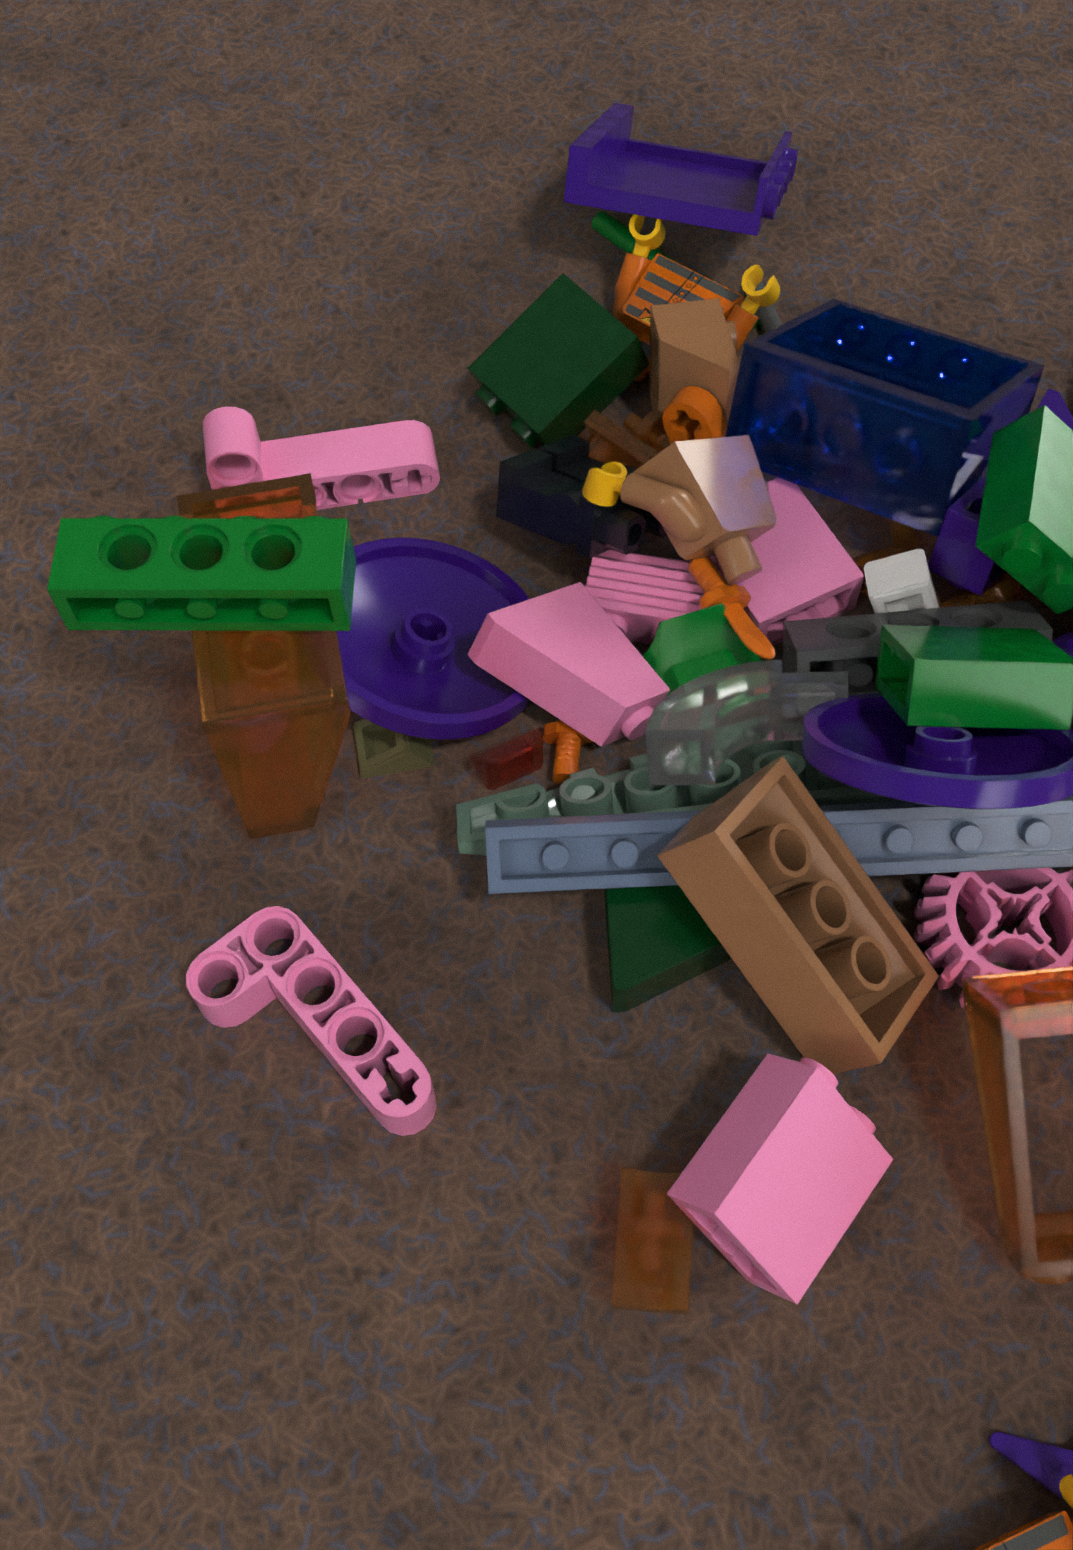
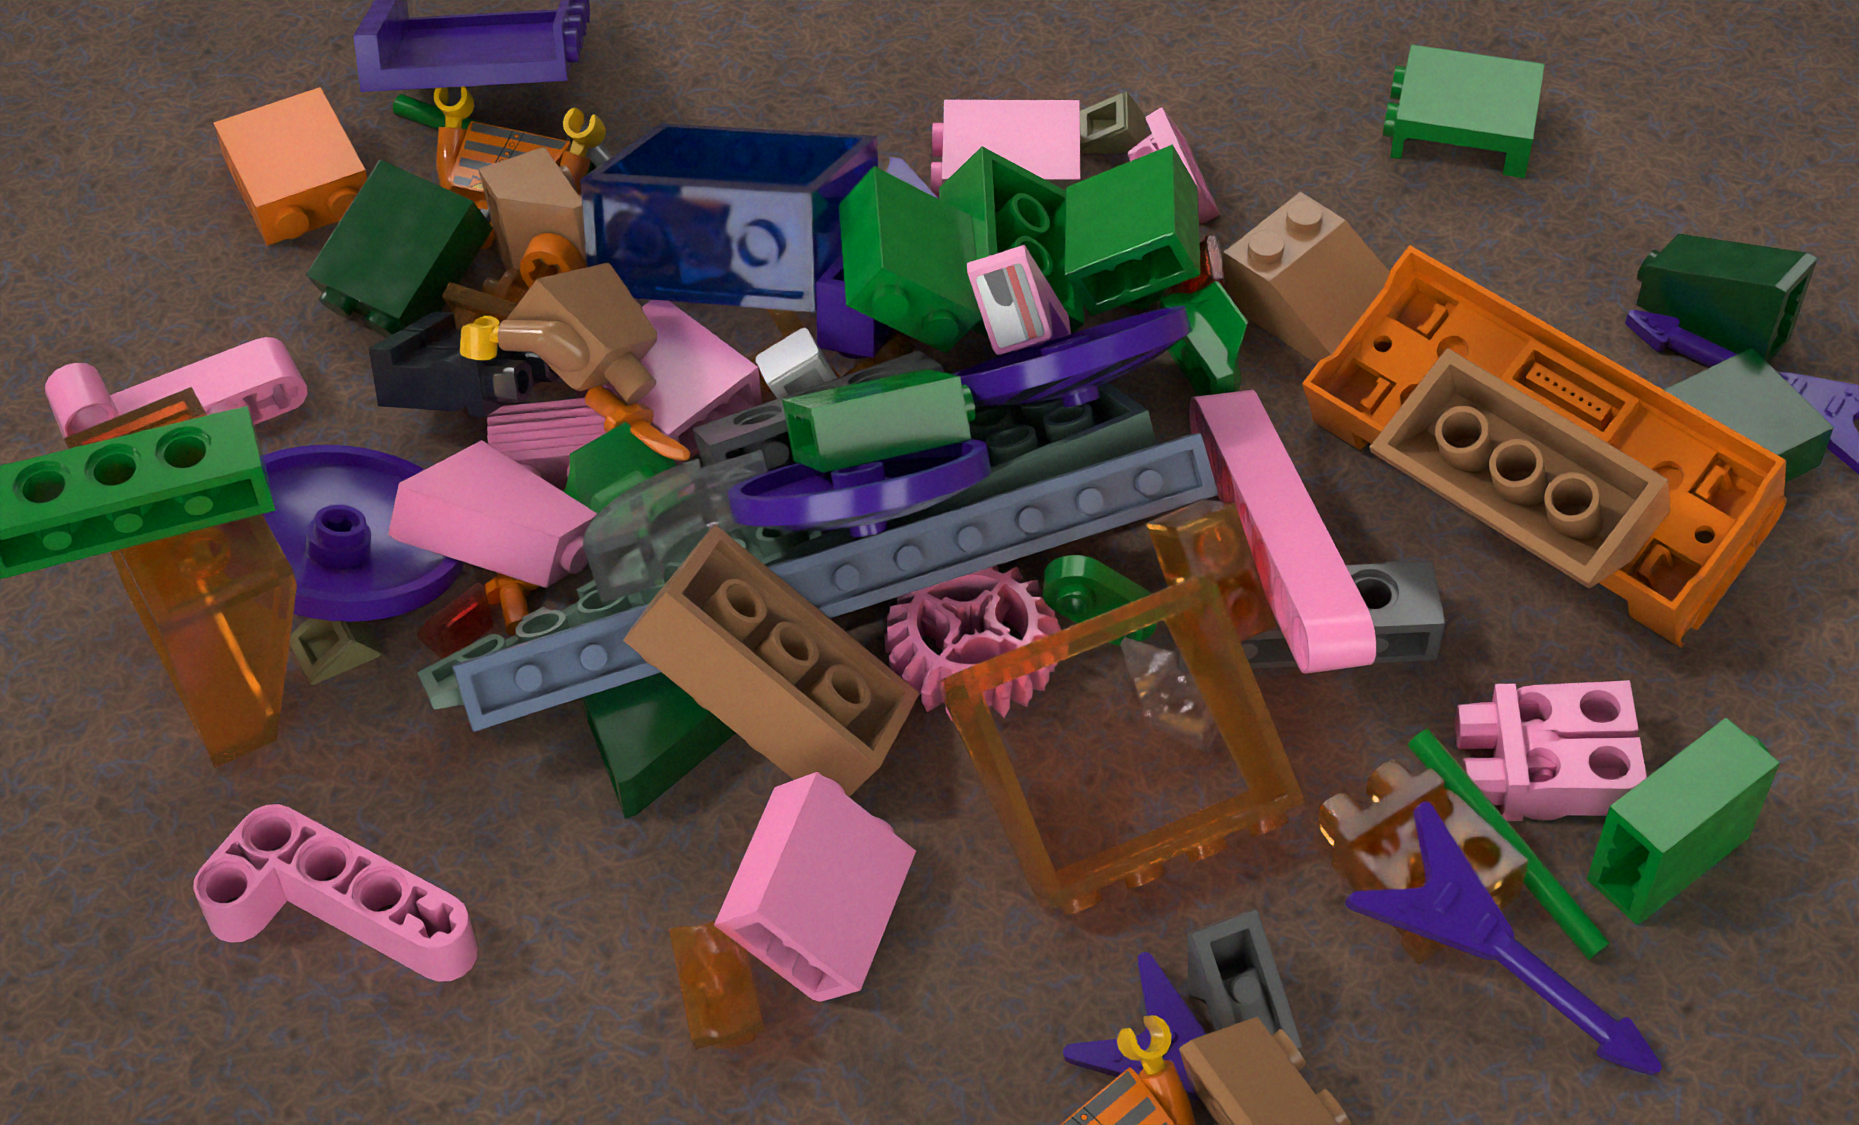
camera: 20 degrees left, 10 degrees down
(487, 255) = (292, 164): none -> orange brick

